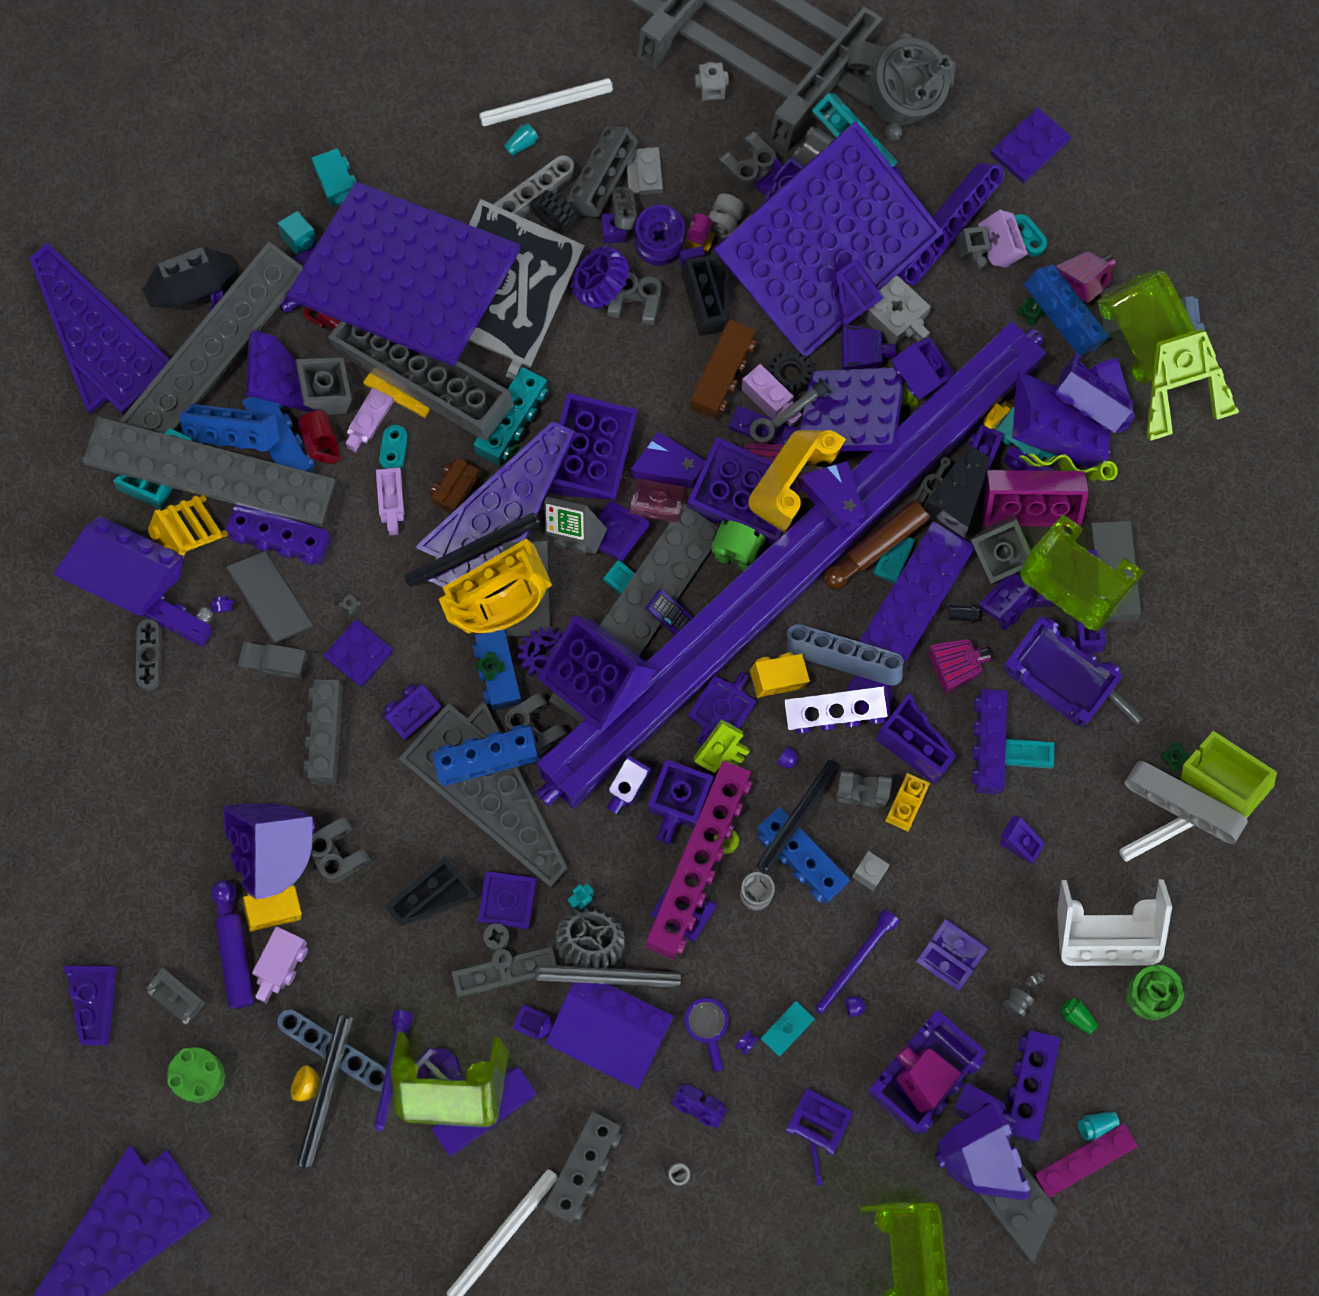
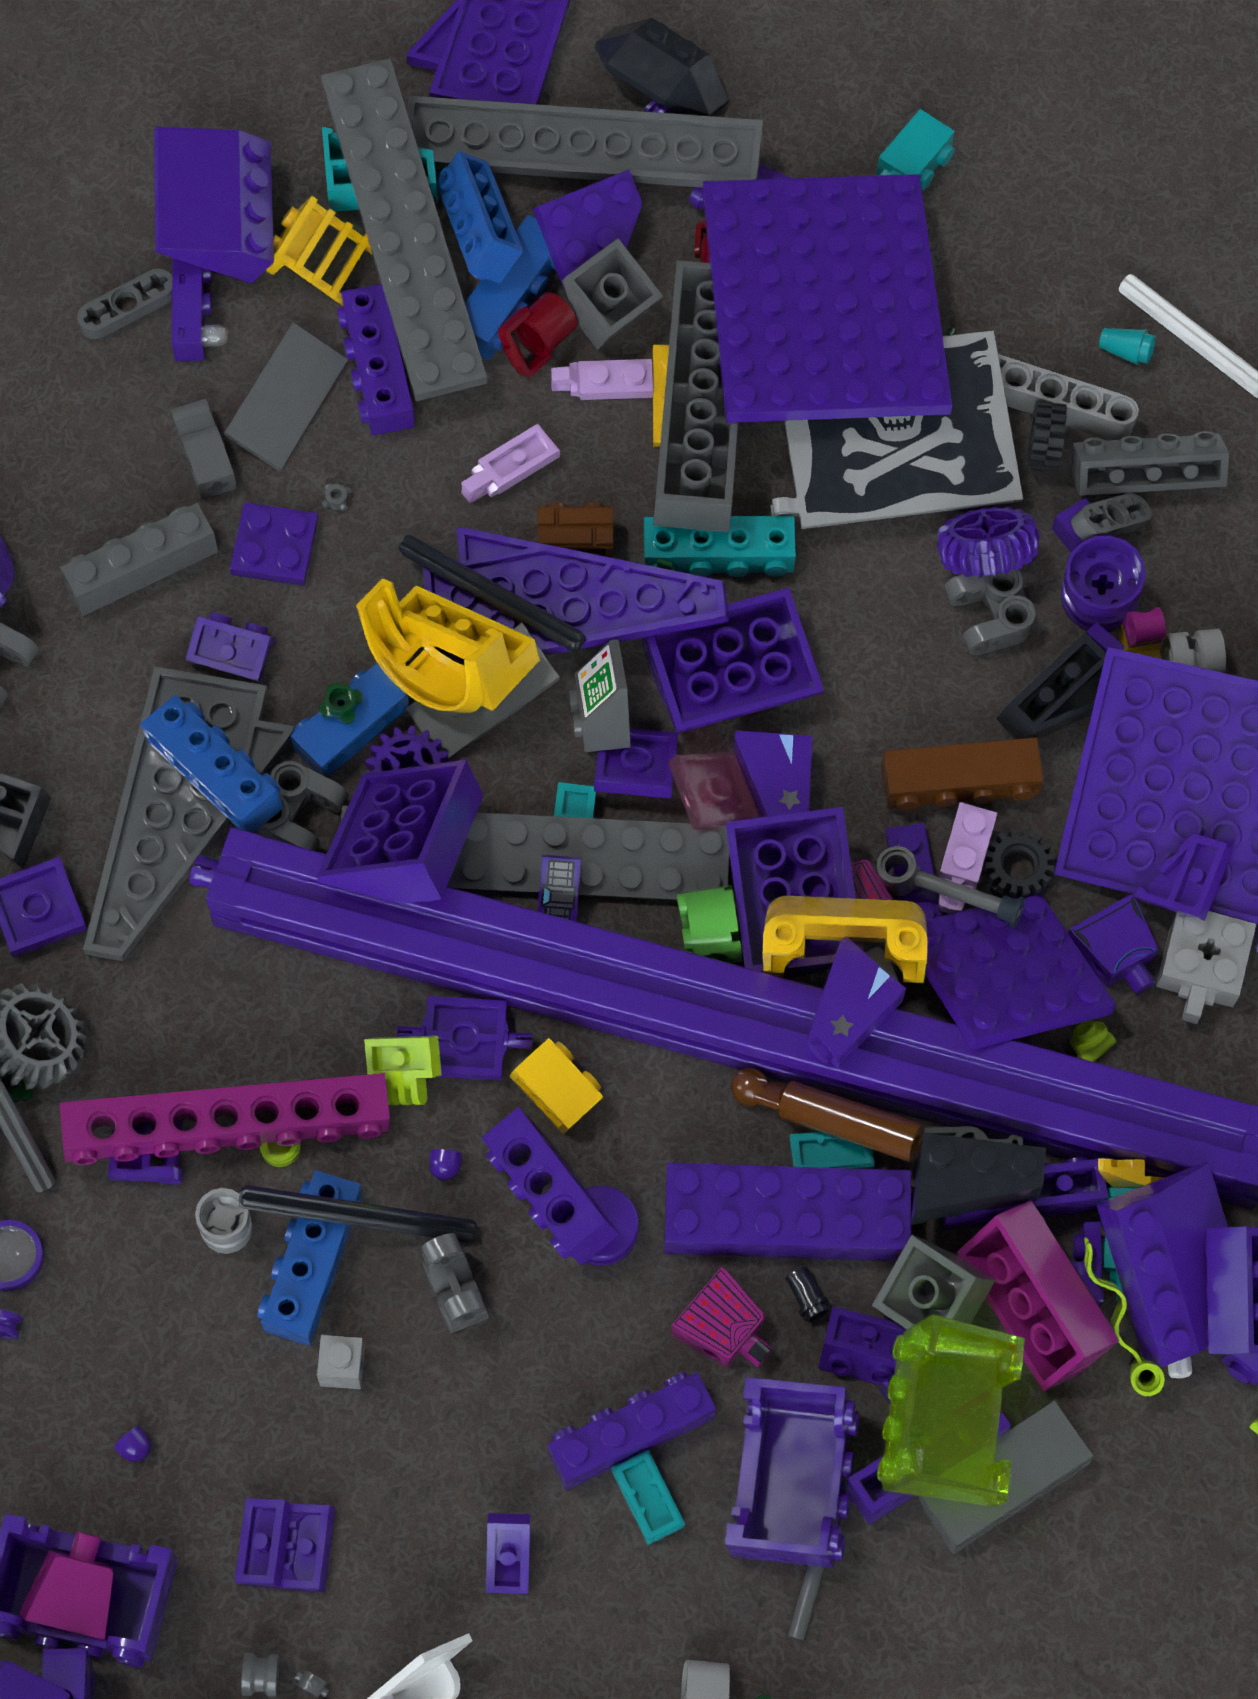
camera: 60 degrees right, 5 degrees down
(221, 604) = (242, 347): dark purple plate -> none
(297, 233) = (805, 151): teal brick -> none
(393, 447) = (586, 431): teal plate -> none
(581, 897) = (89, 996): teal plate -> none
(636, 776) = (283, 970): torso -> none
(645, 171) = (1192, 521): light grey plate -> none
(678, 810) = (284, 1031): dark purple brick -> none
(787, 1029) = (53, 1371): teal plate -> none
(845, 654) = (632, 1133): sand blue beam -> none
(885, 923) = (278, 1425): dark purple piece -> none
(907, 802) = (477, 1364): yellow slope -> none
(915, 741) = (568, 1319): dark purple wedge -> none
(923, 368) = (1132, 1029): dark purple brick -> none

